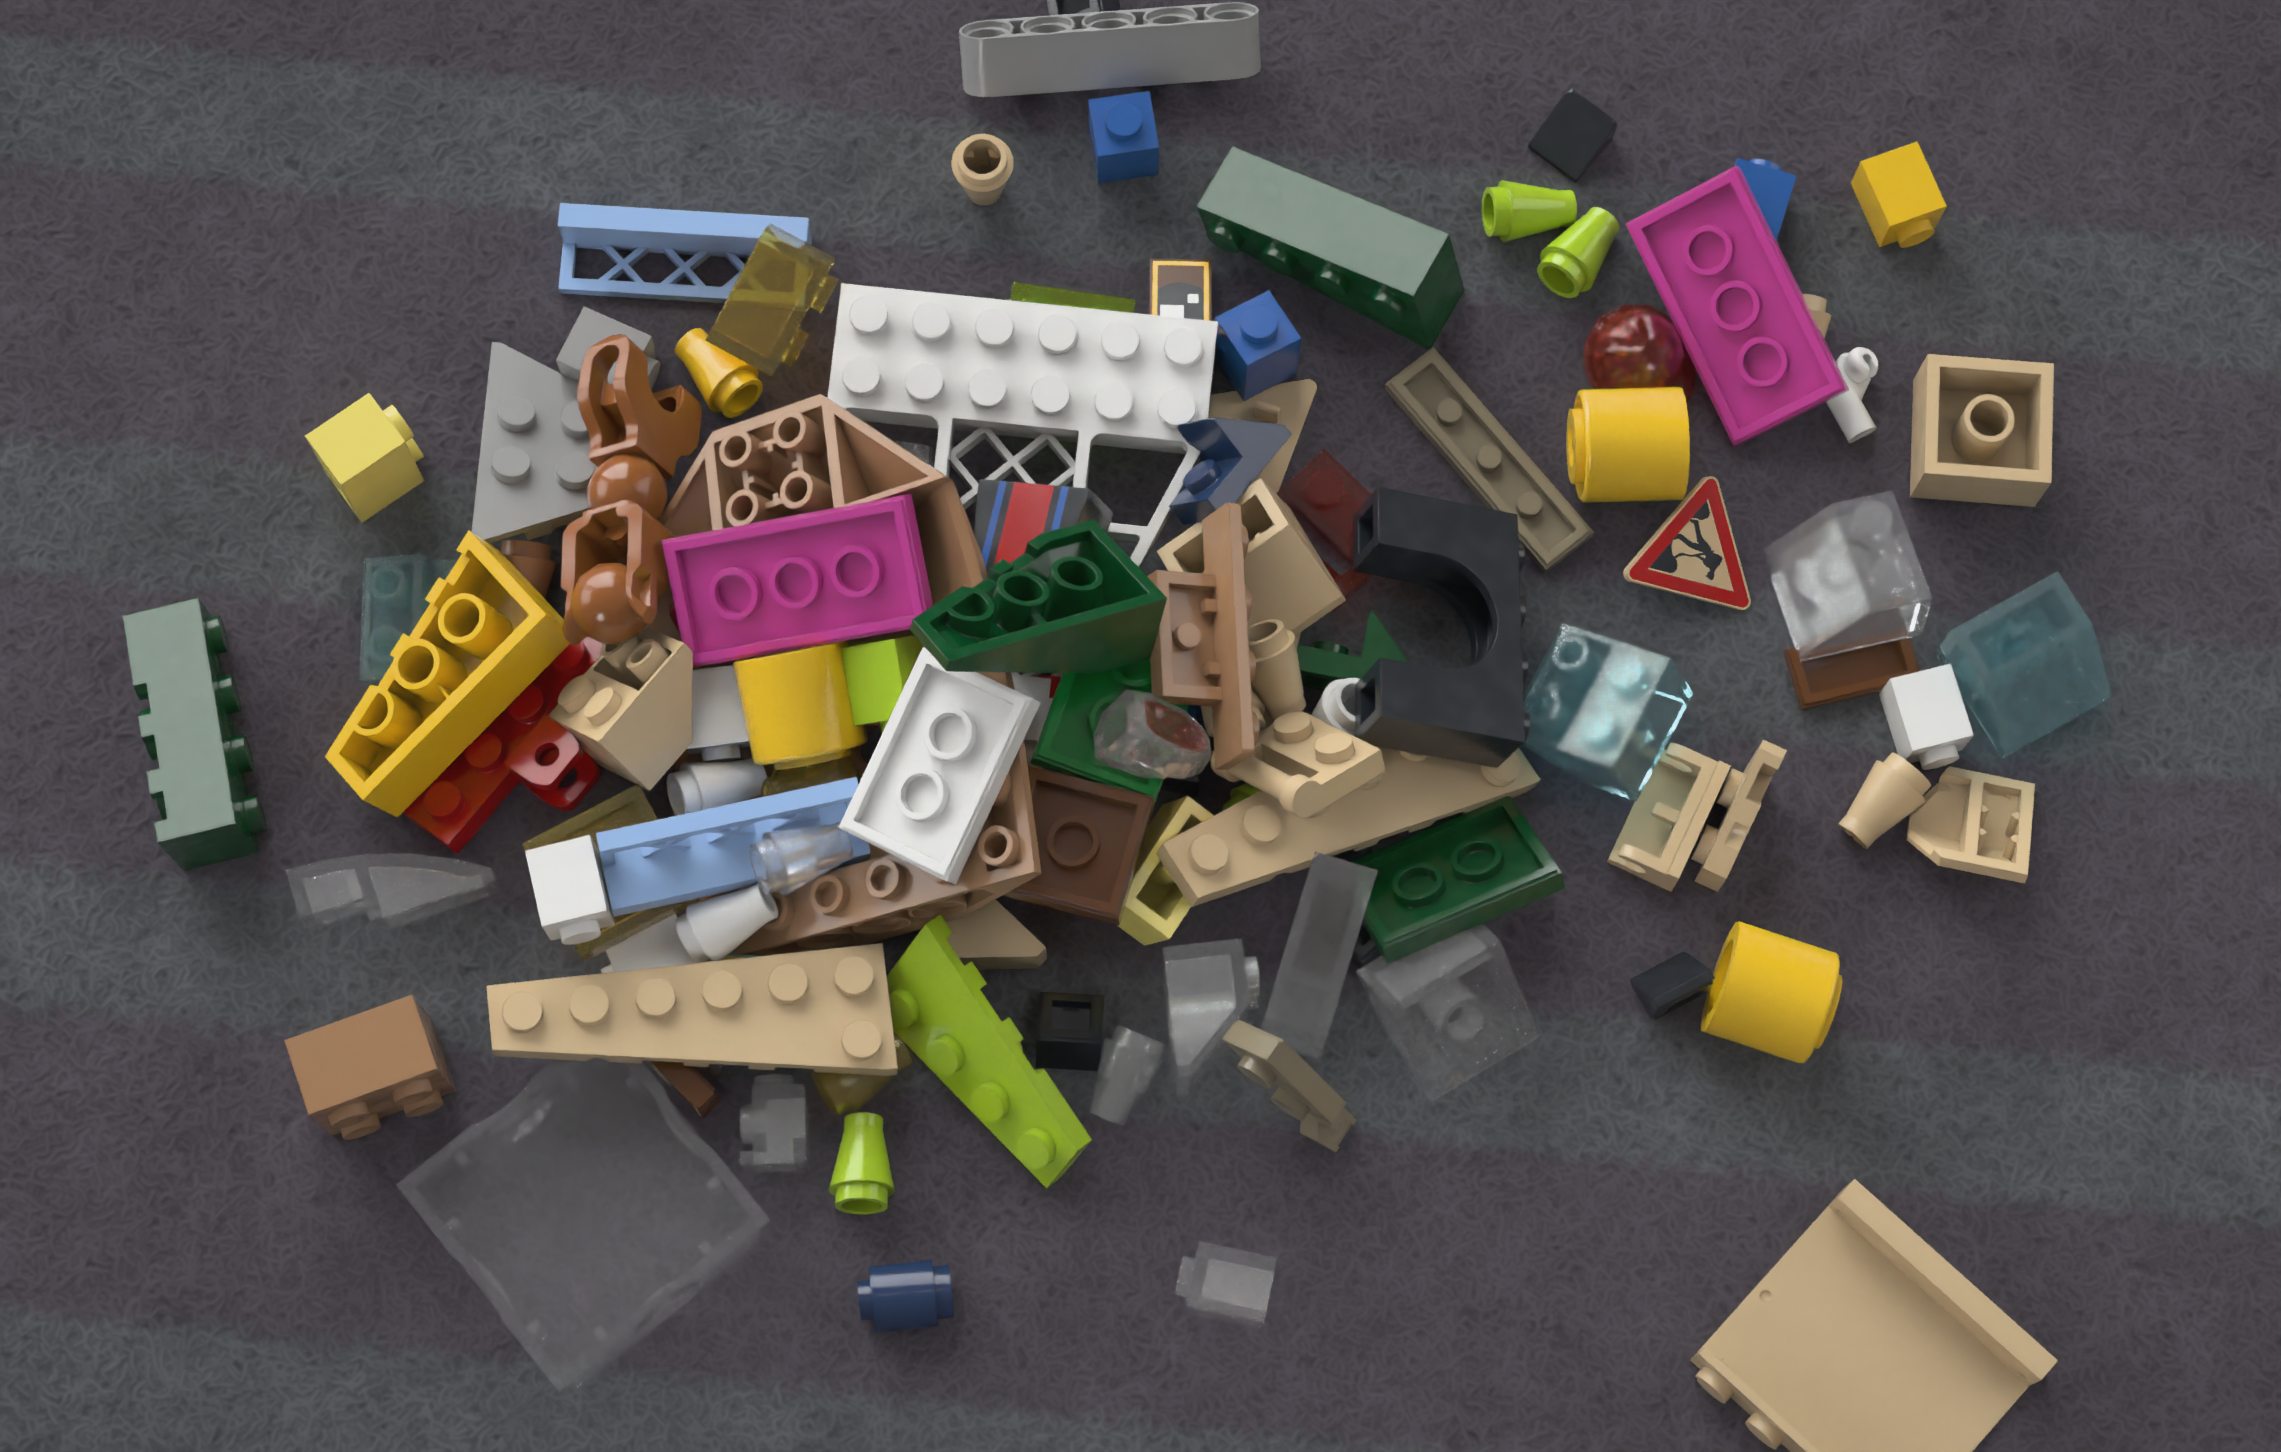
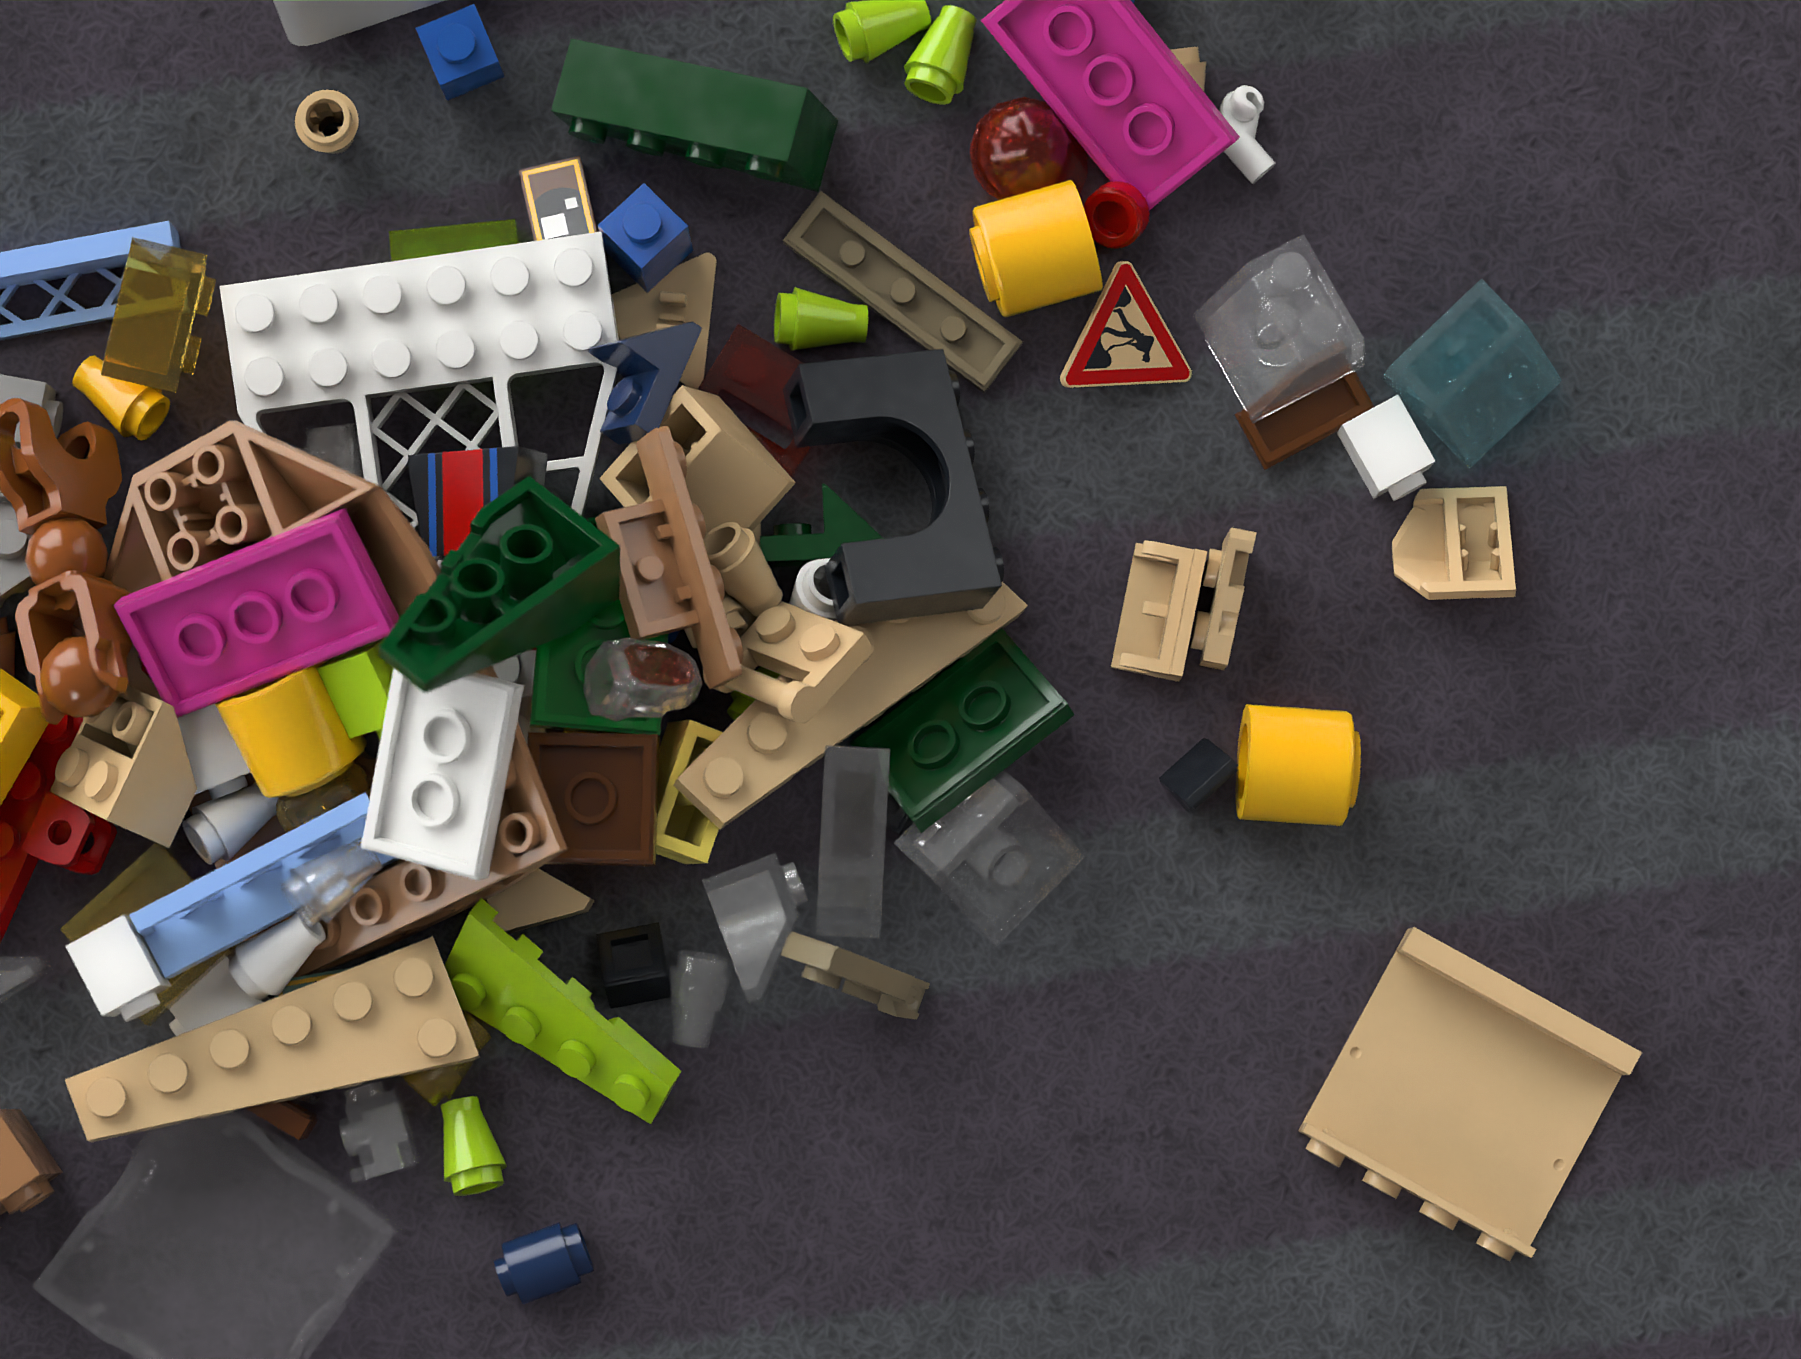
camera: 10 degrees left, 10 degrees up
(1227, 1285) = (843, 1175): clear brick -> none
(1401, 464) = (817, 320): none -> lime cone
(1604, 709) = (1071, 522): clear light blue slope -> none
(1715, 436) = (1116, 214): none -> red tile
(1885, 798) = (1363, 541): tan cone -> none
(1982, 430) = (1378, 145): tan brick -> none

